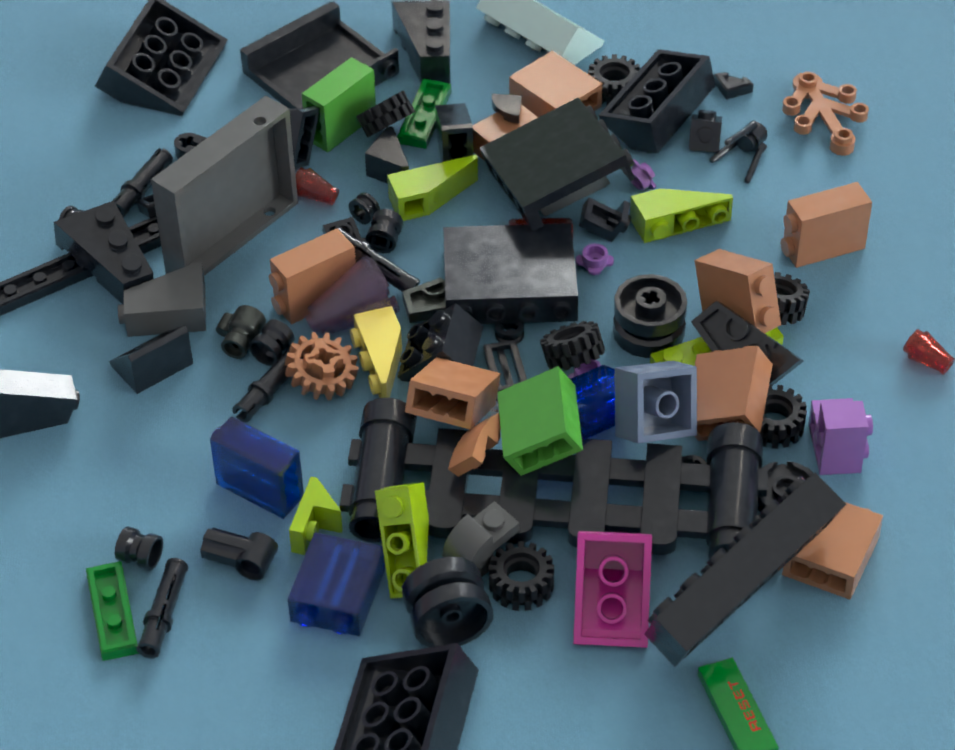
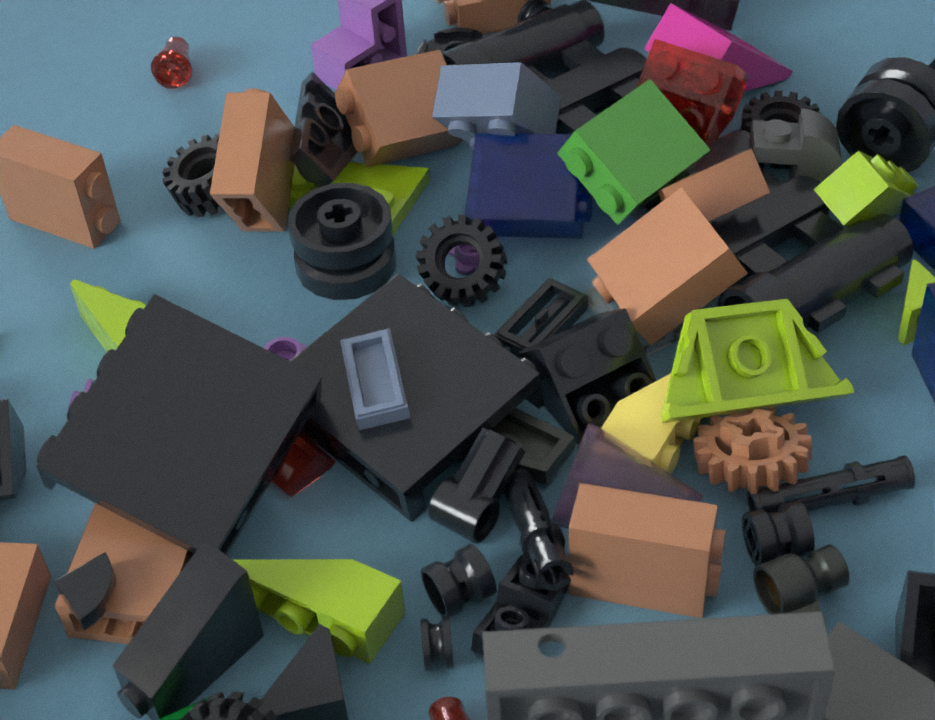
camera: 130 degrees left, 0 degrees up
(353, 379) = (747, 361): none -> lime wing
(421, 261) = (470, 499): none -> black piece
(516, 247) = (374, 379): none -> sand blue tile
(574, 503) = (697, 86): none -> clear red slope

